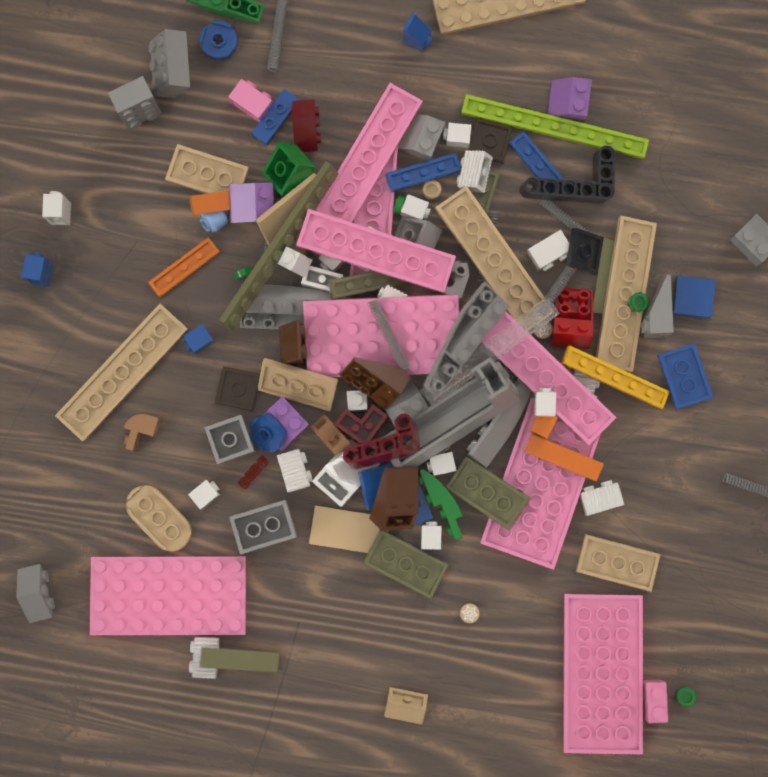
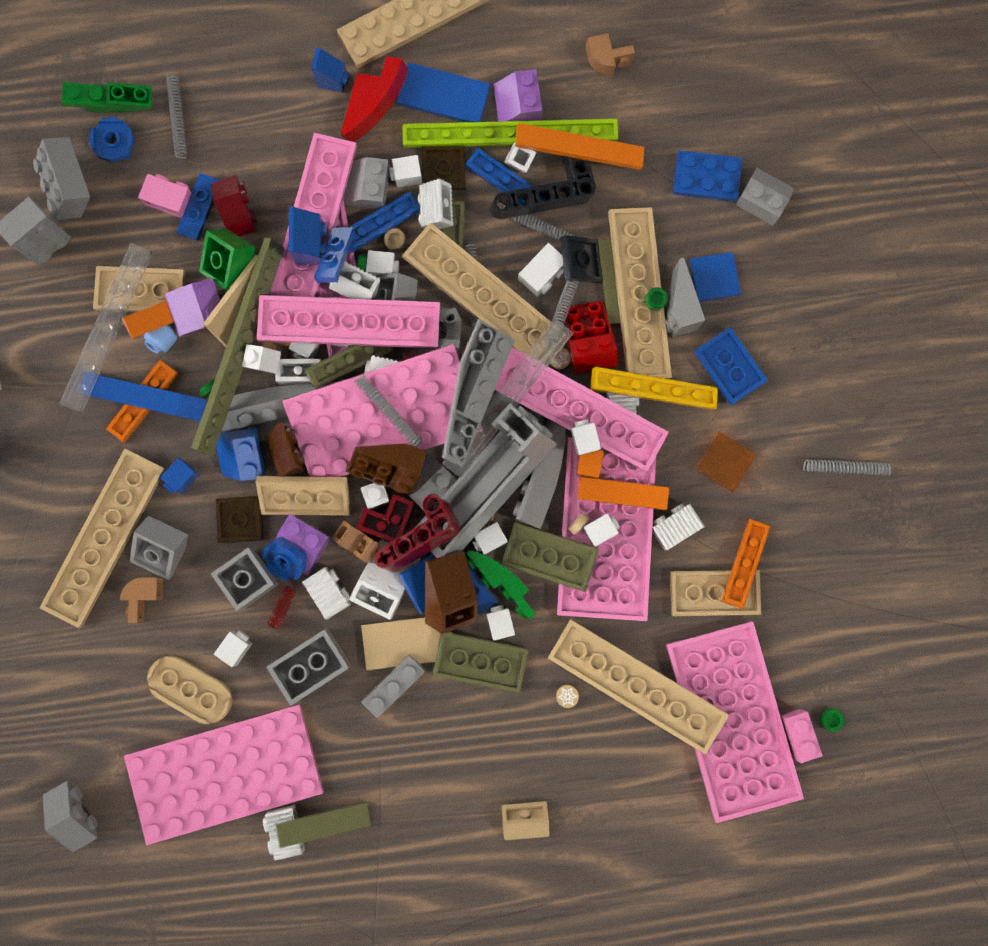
camera: 20 degrees left, 0 degrees up
(165, 393) = (157, 547): none -> light grey slope
(172, 198) = (106, 327): none -> clear tile
(187, 265) = (149, 398): none -> blue tile
(255, 336) = (241, 454): none -> blue slope
(327, 563) = (393, 686): none -> light grey plate
(360, 170) = (306, 236): none -> blue slope
(379, 192) = (334, 255): none -> blue plate
(388, 218) = (356, 283): none -> white brick
(446, 66) = (373, 98): none -> red slope
(507, 77) = (443, 94): none -> blue tile
(519, 472) = (578, 523): none -> tan tile
(531, 621) = (638, 686): none -> tan plate
(537, 483) = (602, 529): none -> white brick
(557, 150) = (519, 158): none -> white brick
(610, 156) = (579, 146): none -> orange tile
(650, 545) = (745, 564): none -> orange tile
(651, 82) = (604, 58): none -> medium nougat brick
(658, 455) = (725, 462): none -> clear orange tile
(712, 209) = (707, 176): none -> blue plate

